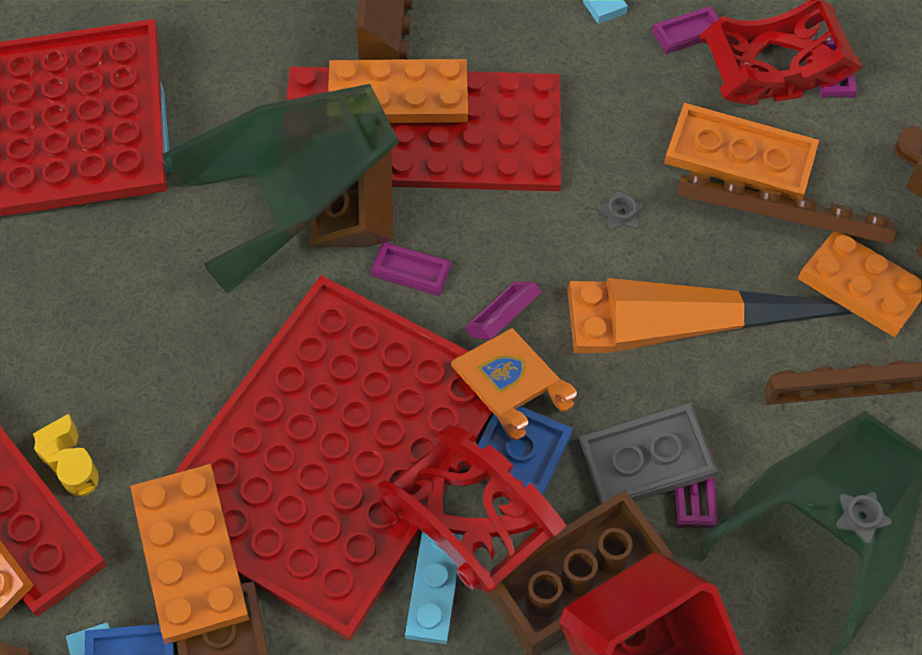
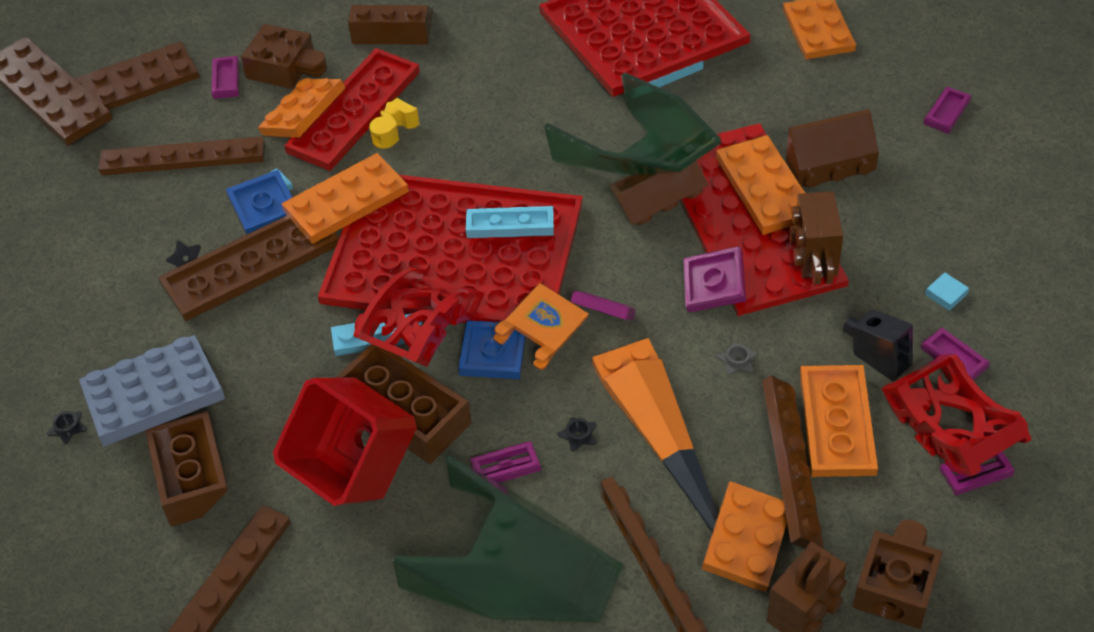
camera: 75 degrees right, 10 degrees down
(338, 363) = (510, 222): none -> medium azure plate
(411, 268) = (618, 248): magenta tile -> none
(512, 188) = (714, 279): none -> magenta tile
(524, 66) = (816, 236): none -> reddish brown brick
(649, 455) = (517, 425): dark grey tile -> none
(666, 73) = (882, 342): none -> black torso
(669, 388) = (578, 425): none -> black plate
(870, 508) = (491, 534): dark grey plate -> none

